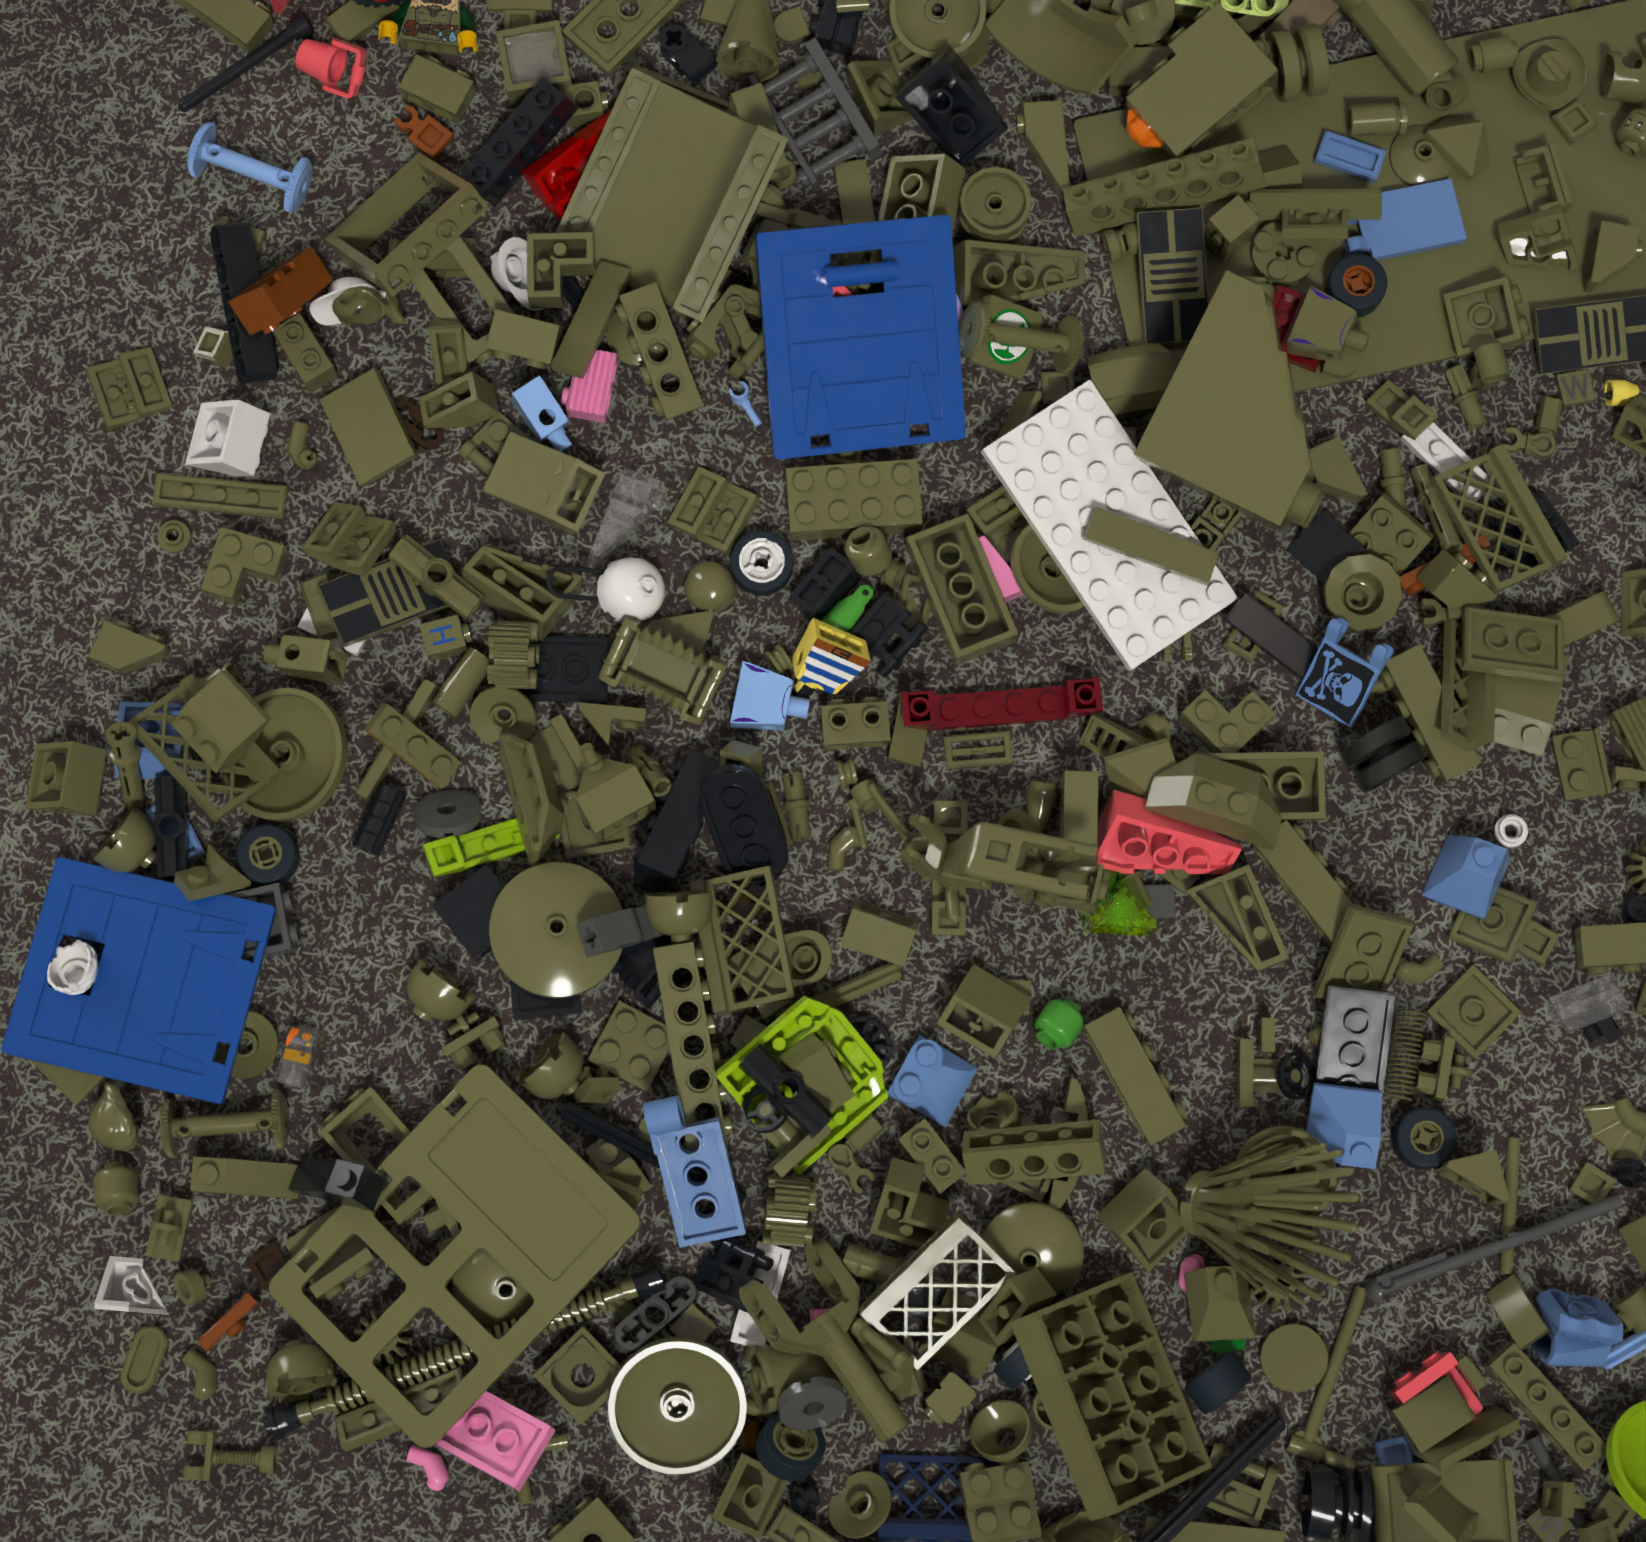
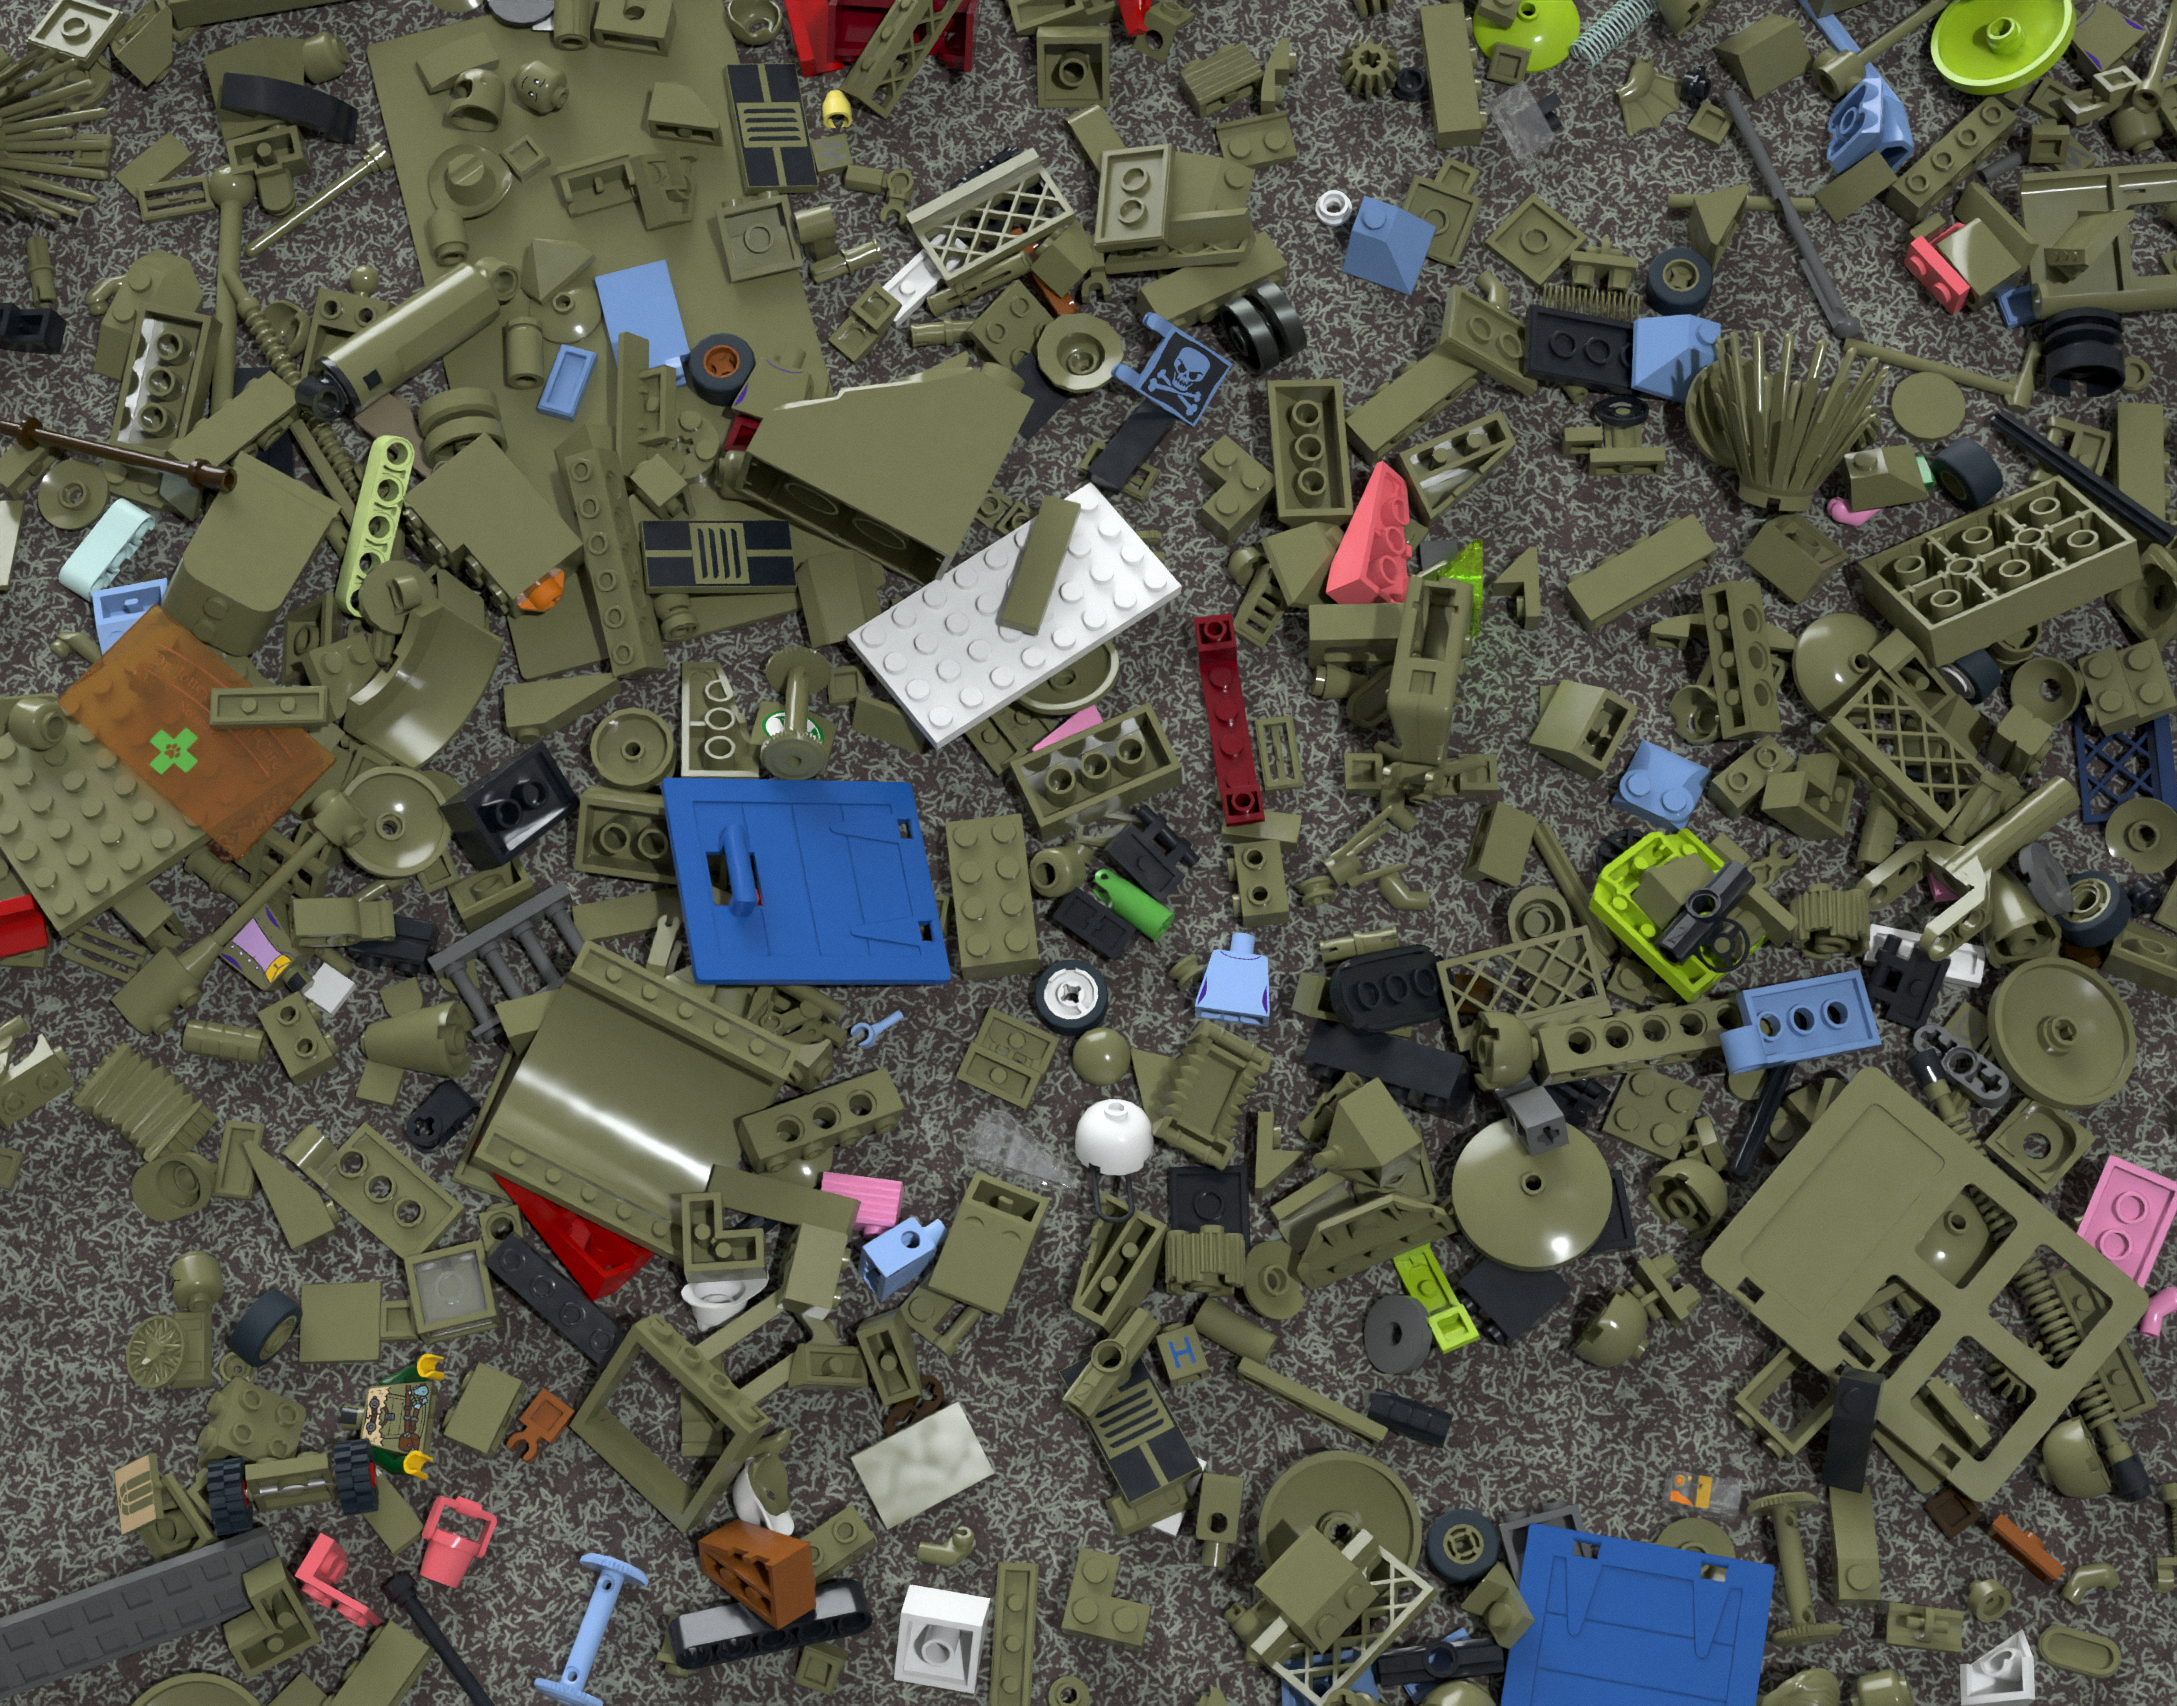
camera: 85 degrees left, 10 degrees down
(349, 539) = (1065, 1476): olive slope -> none
(412, 745) = (1320, 1378): olive plate -> none
(827, 659) = (1187, 911): torso -> none
(1059, 1024) = (1587, 652): bright green head -> none
(1133, 972) = (1523, 580): none -> olive slope
(1217, 799) = (1330, 485): olive wedge -> none

